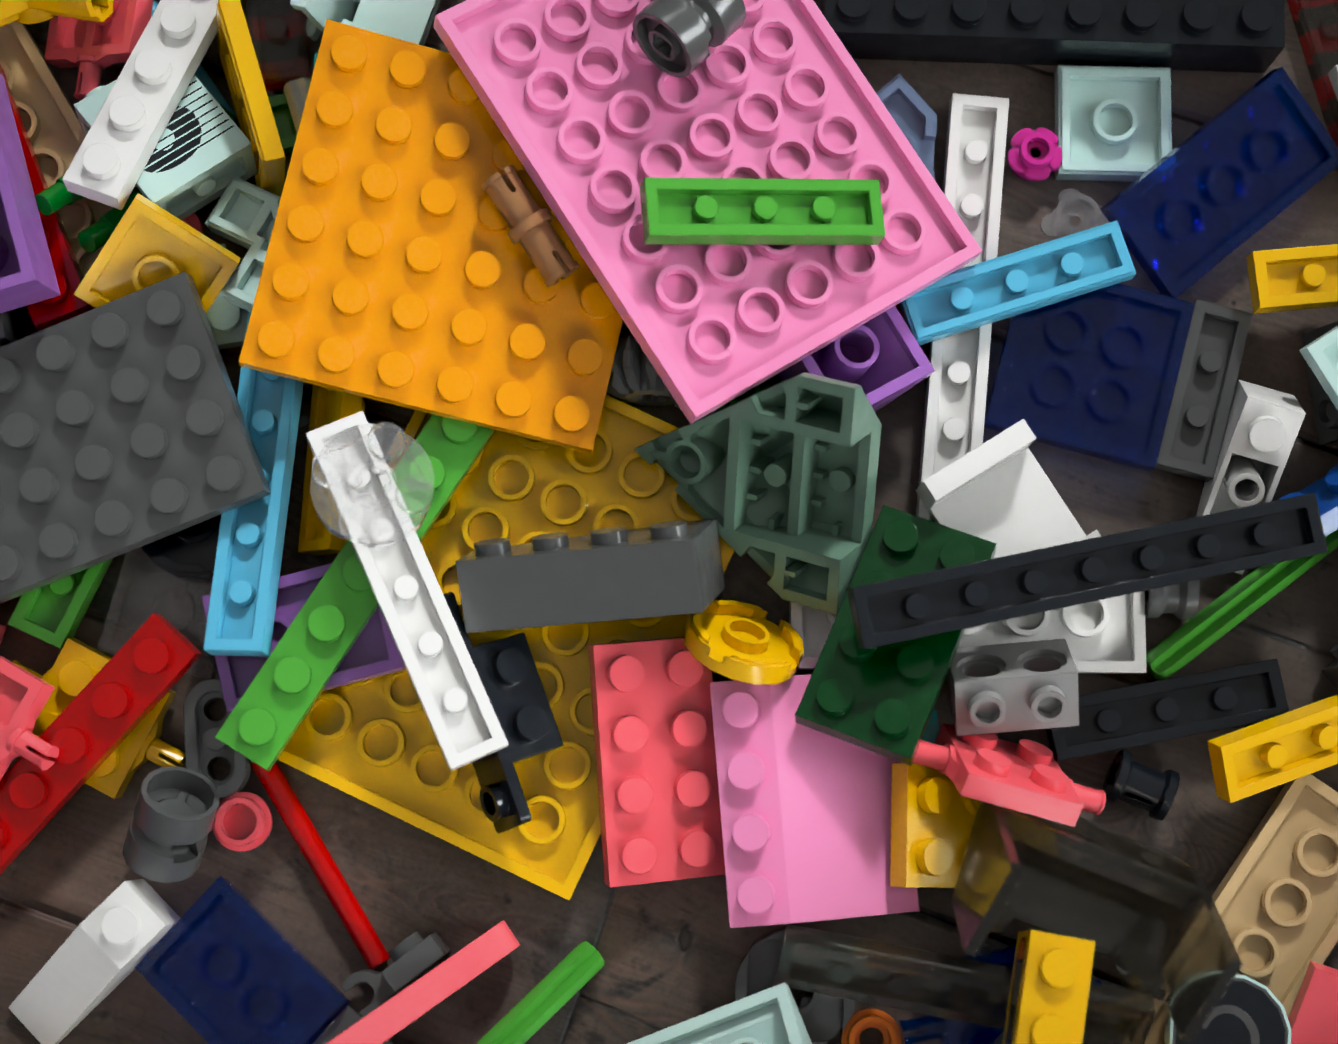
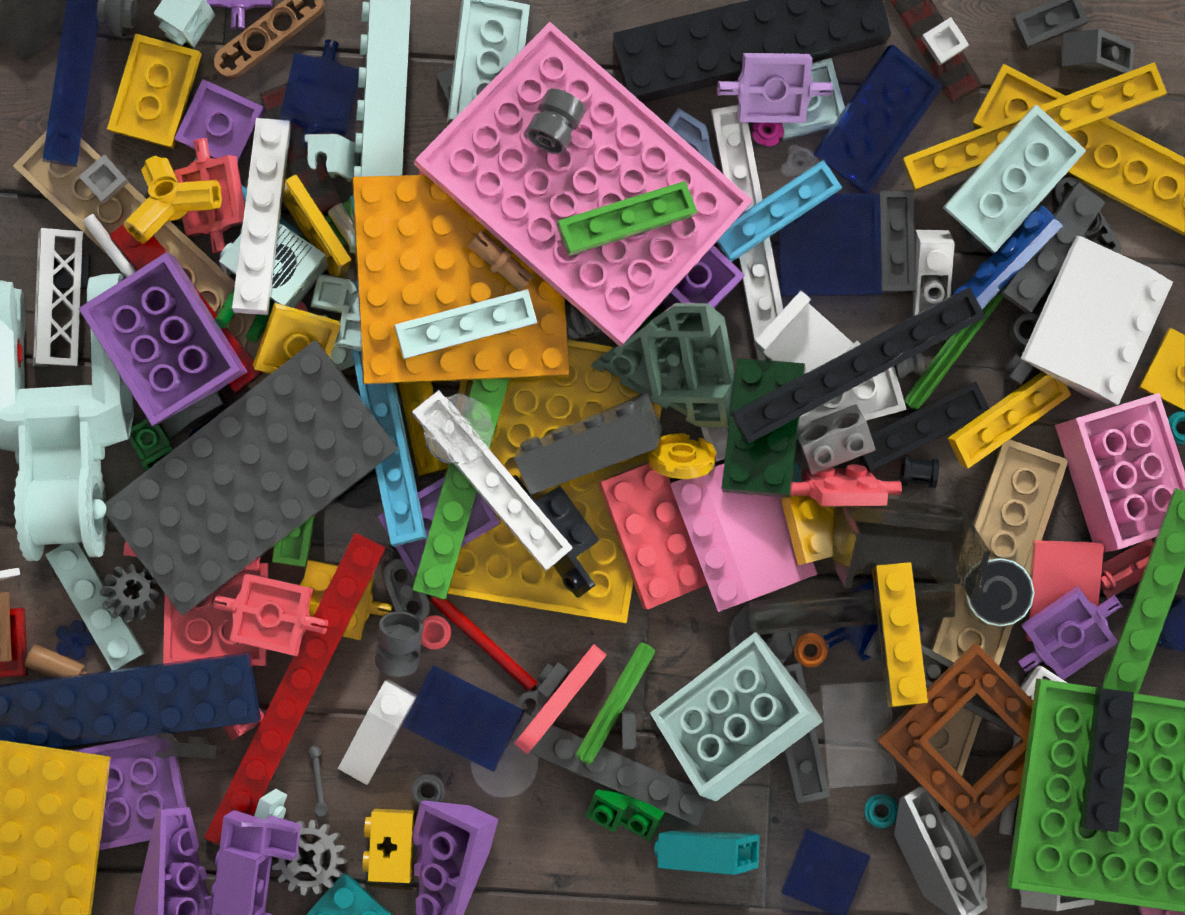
camera: 20 degrees left, 5 degrees up
(437, 311) = (465, 324): none -> light aqua plate
(1068, 80) = (774, 88): none -> lavender plate

